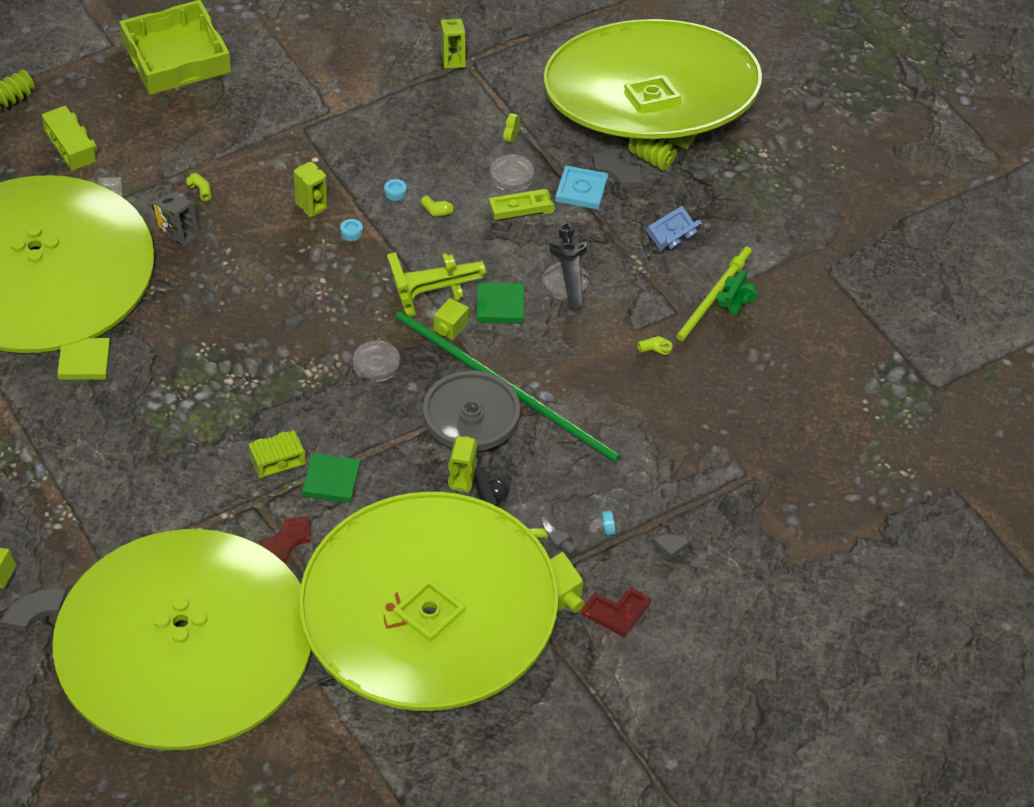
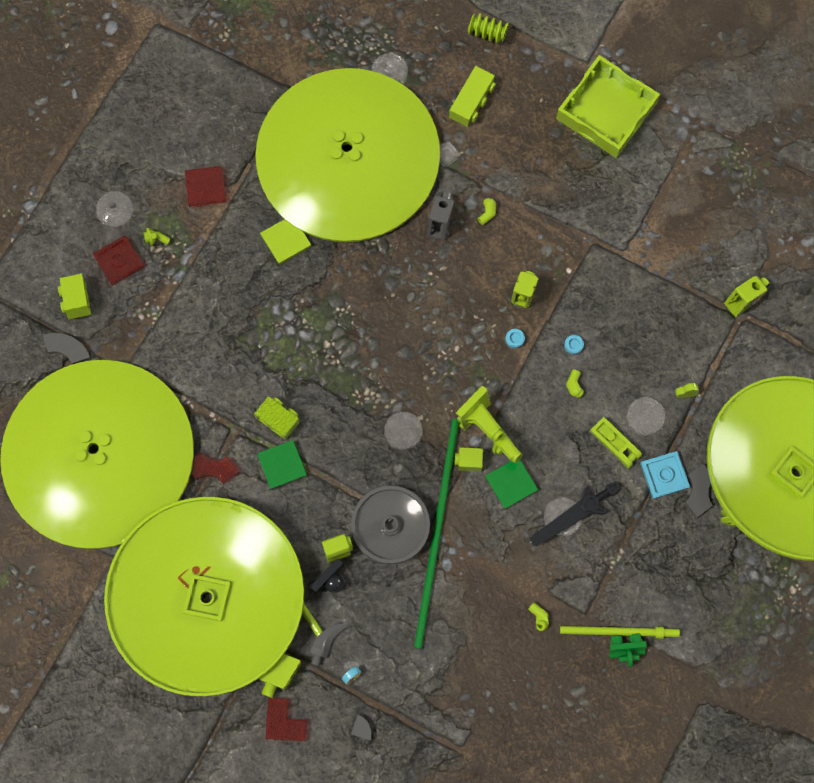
camera: 60 degrees right, 25 degrees up
(672, 228) = (661, 567): medium blue bracket -> none

